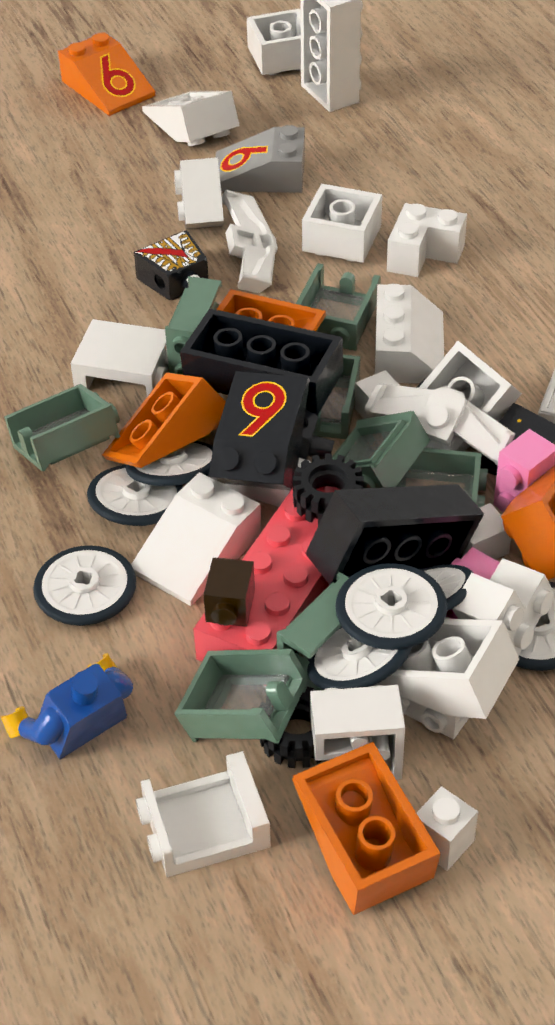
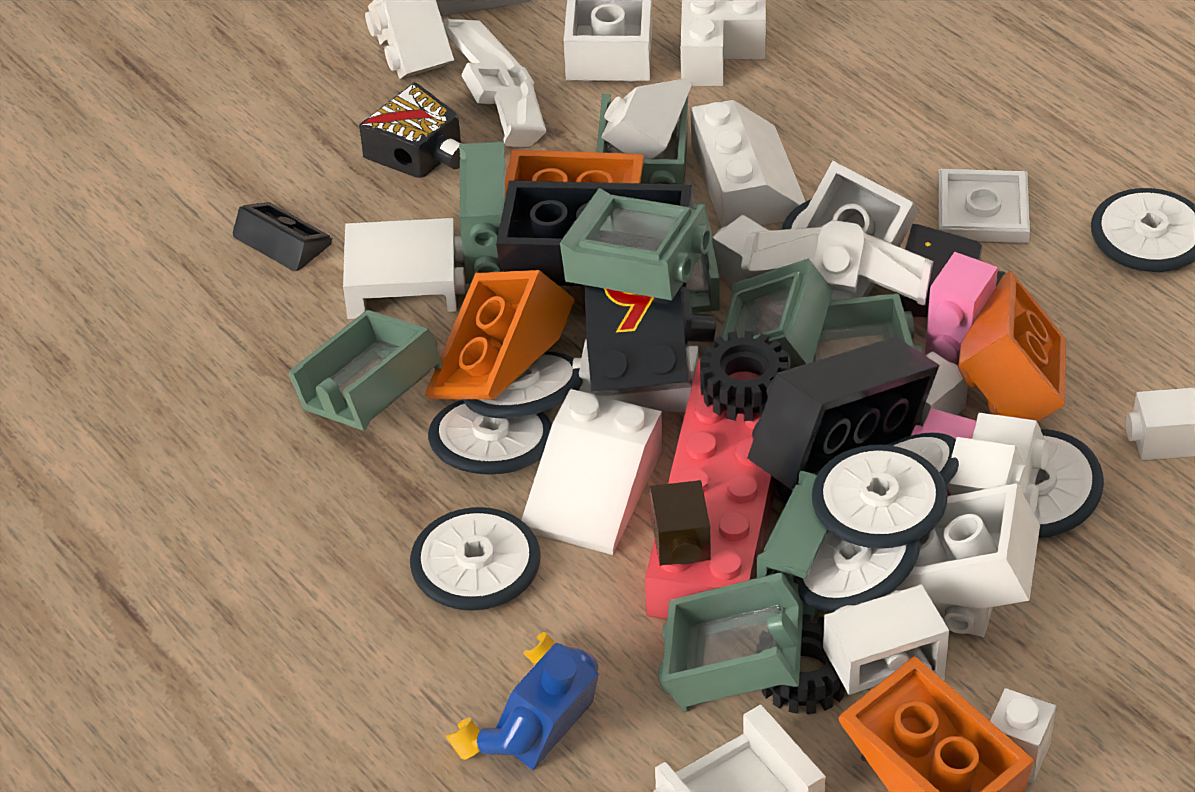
camera: 15 degrees left, 0 degrees up
(51, 319) = (279, 235): none -> black slope
(272, 371) = (634, 245): none -> sand green window
(340, 284) = (646, 117): none -> white slope

